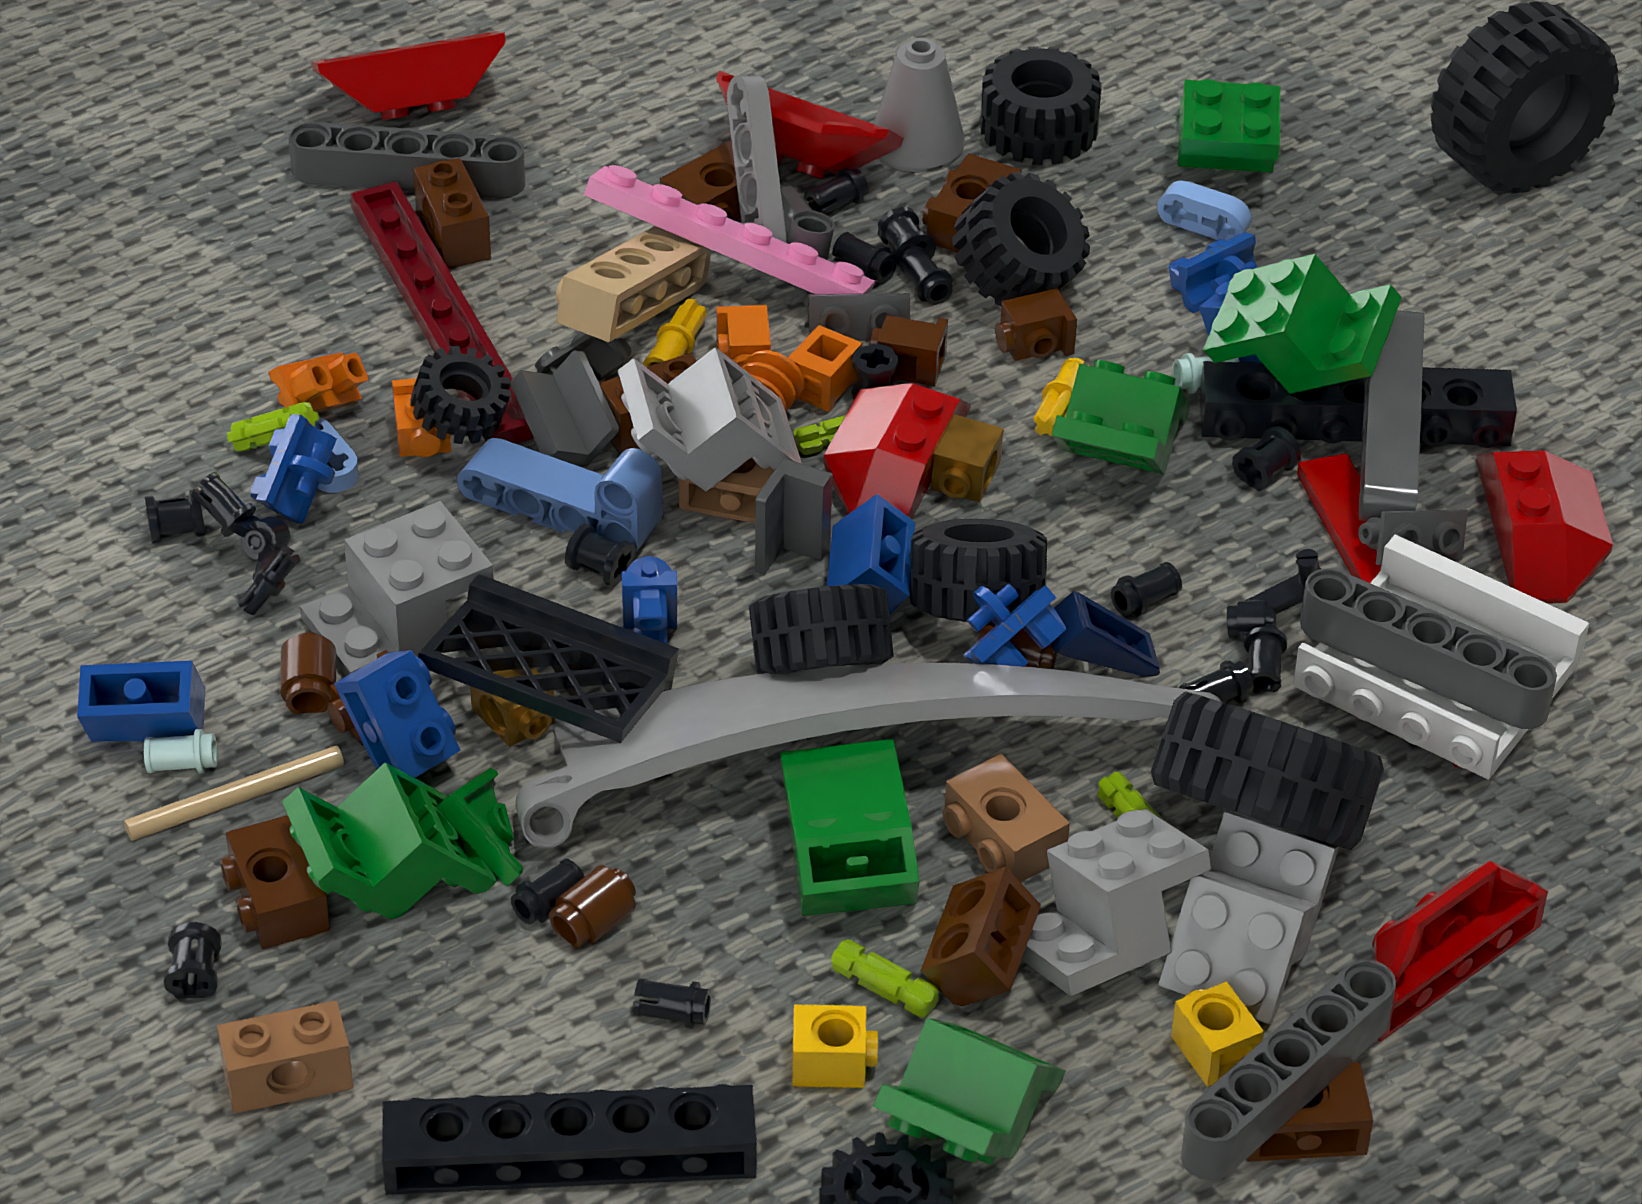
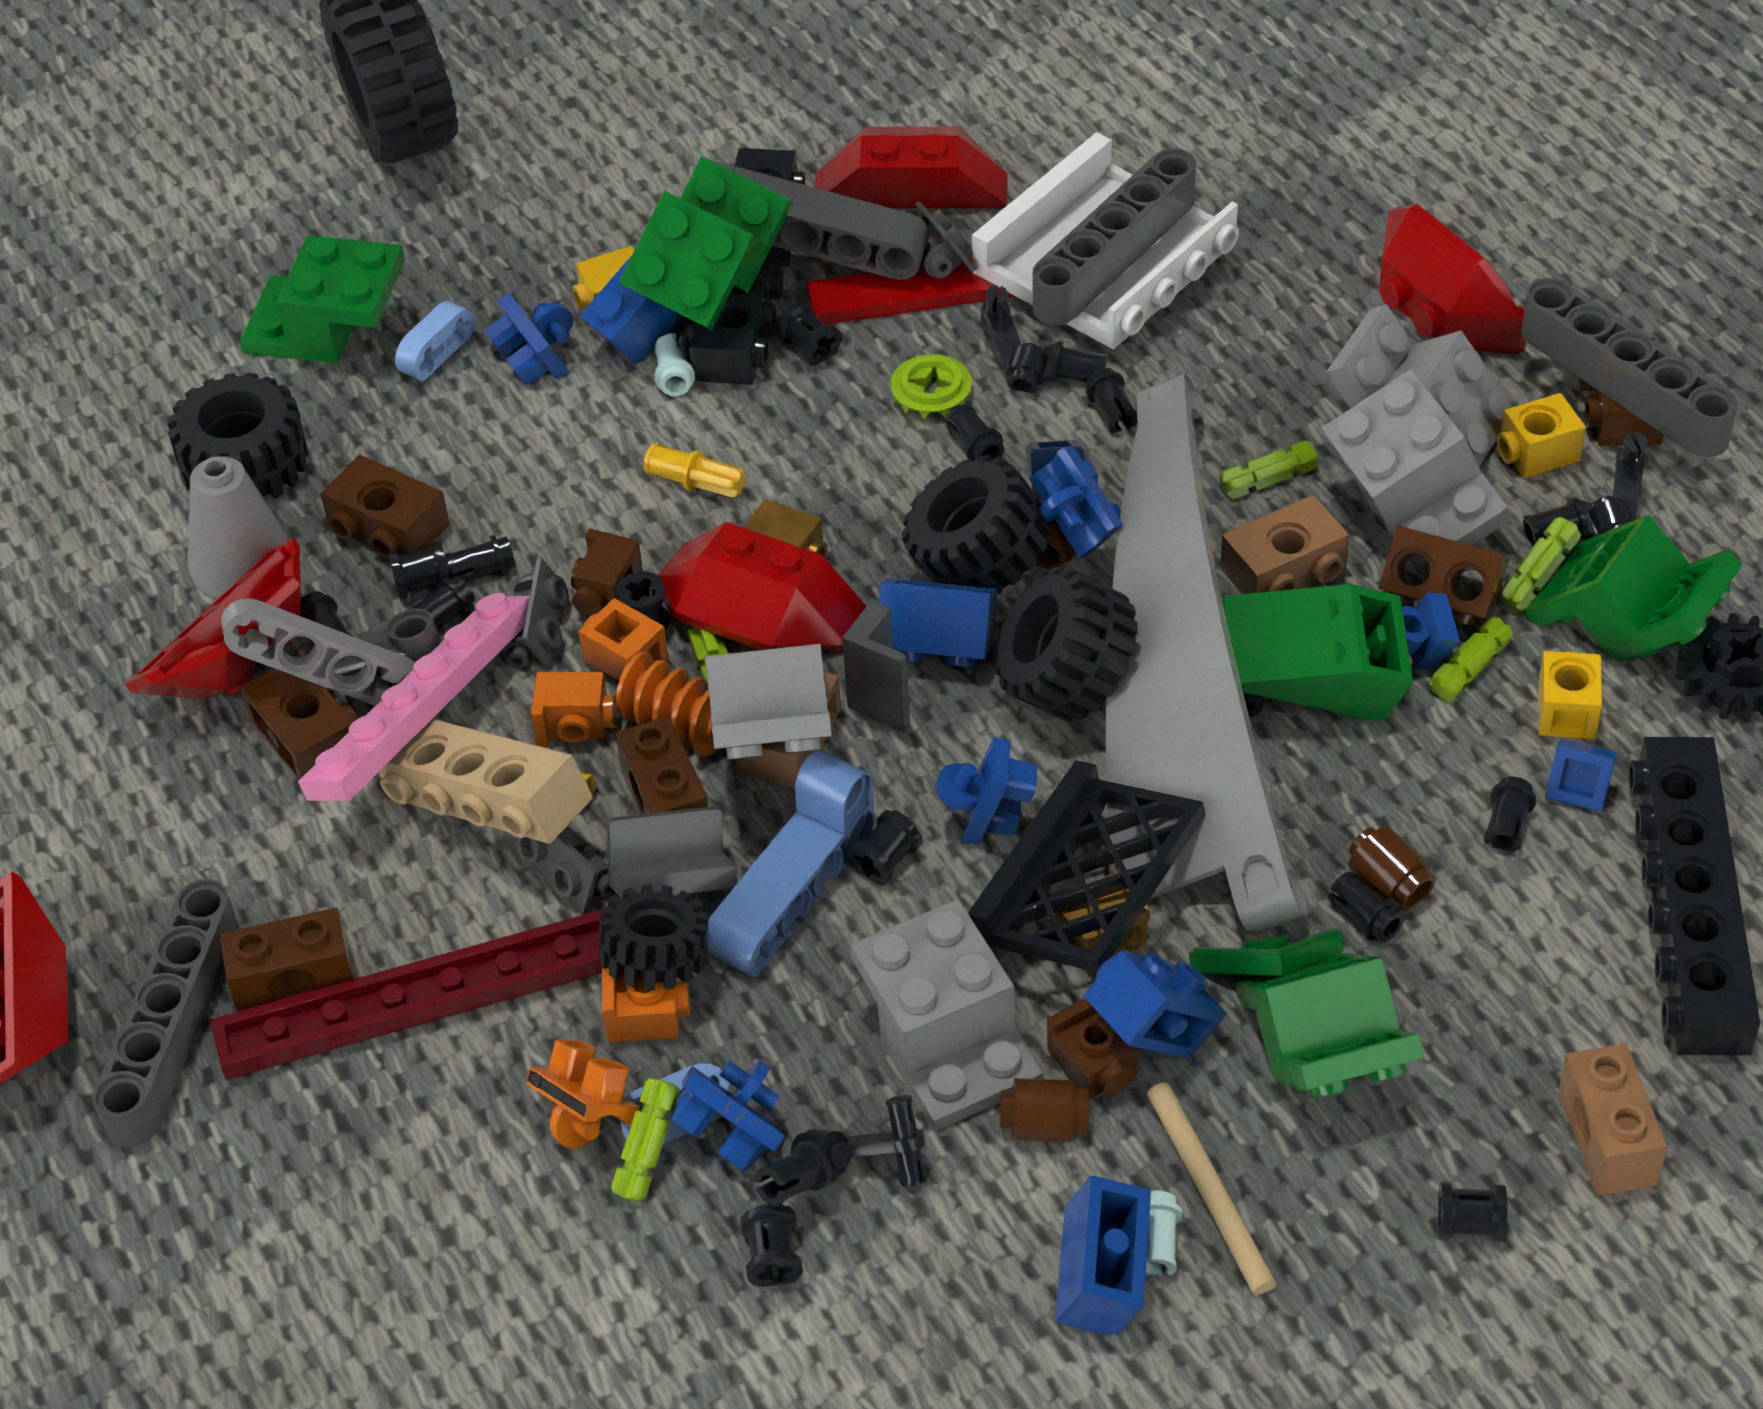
camera: 80 degrees left, 5 degrees up
(274, 884) = (1382, 1110): reddish brown brick -> none
(724, 1053) = (1581, 774): none -> blue tile
(902, 930) = (1430, 630): none -> blue tile
(1018, 1027) = (1539, 564): none -> lime axle
(1036, 326) = (590, 474): reddish brown brick -> none
(1040, 219) = (486, 458): black tyre -> none
(1100, 1091) = (1607, 511): none -> black pin
(1122, 416) = (761, 413): green bracket -> none
(1235, 548) = (914, 376): none -> lime gear
(1267, 769) = (1295, 334): black tyre -> none

